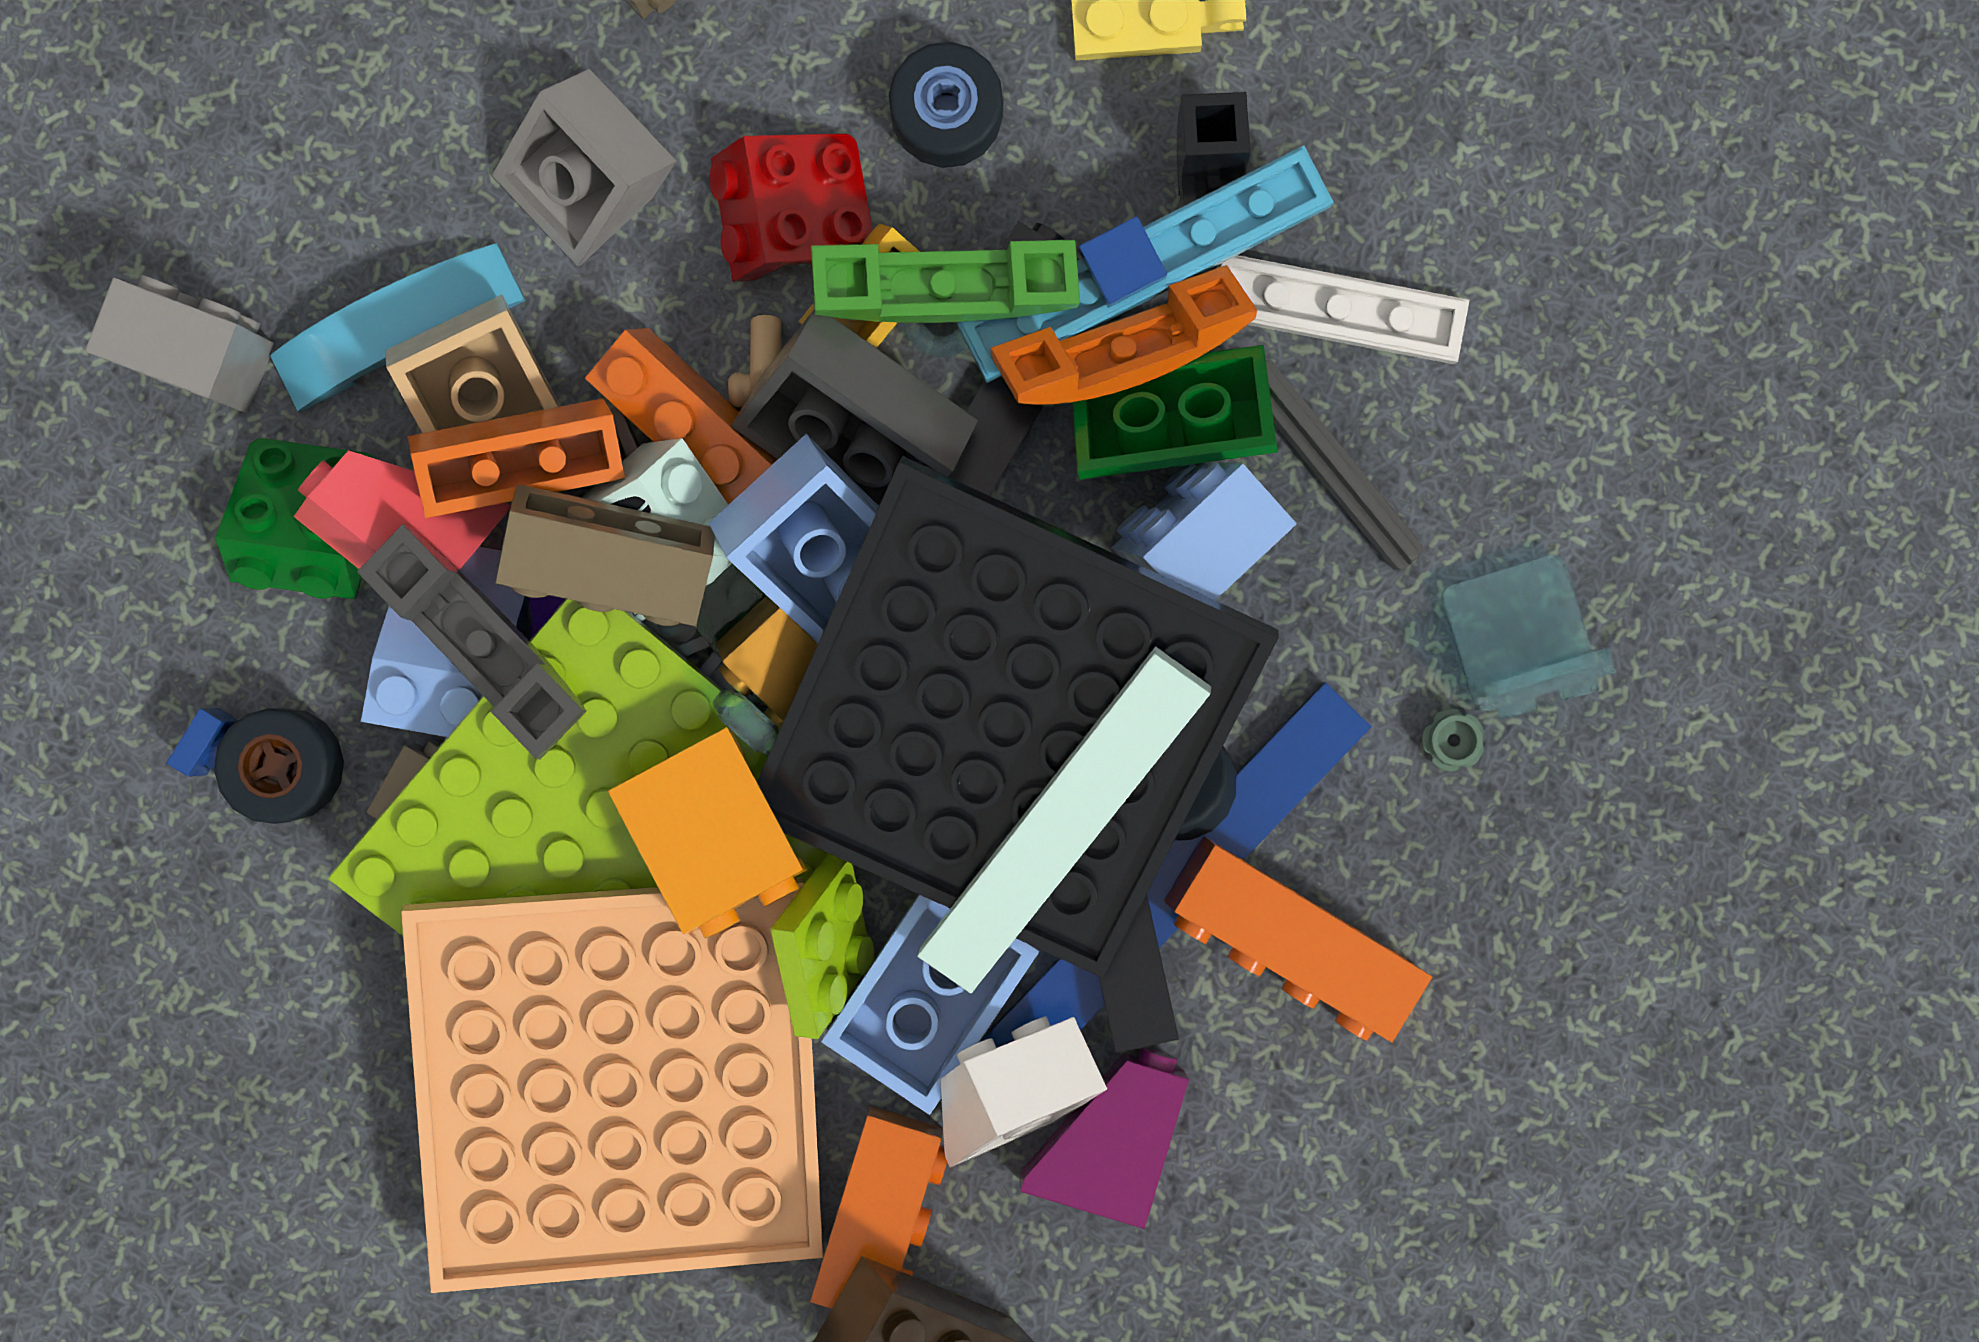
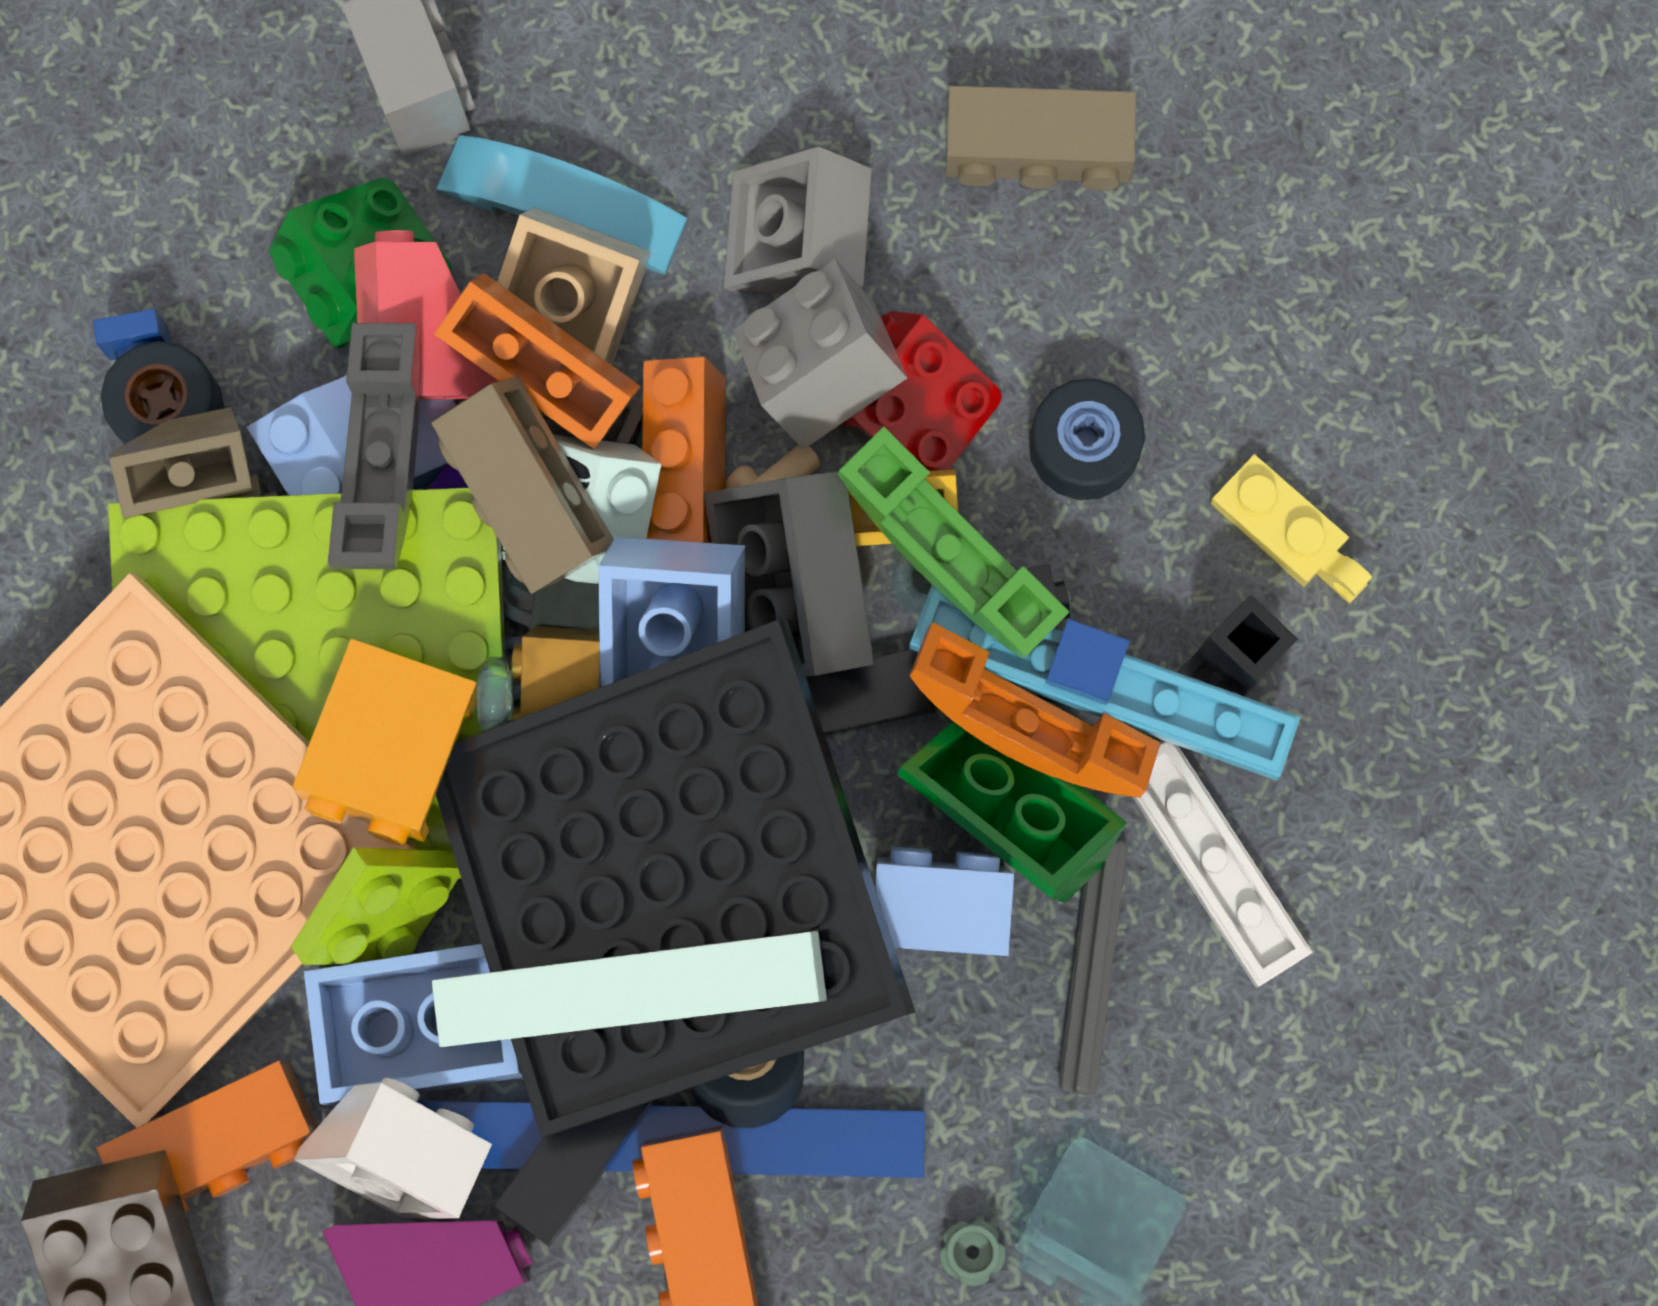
camera: 50 degrees right, 10 degrees down
(347, 796) = (181, 463): none -> dark tan slope
(702, 242) = (818, 354): none -> light grey brick

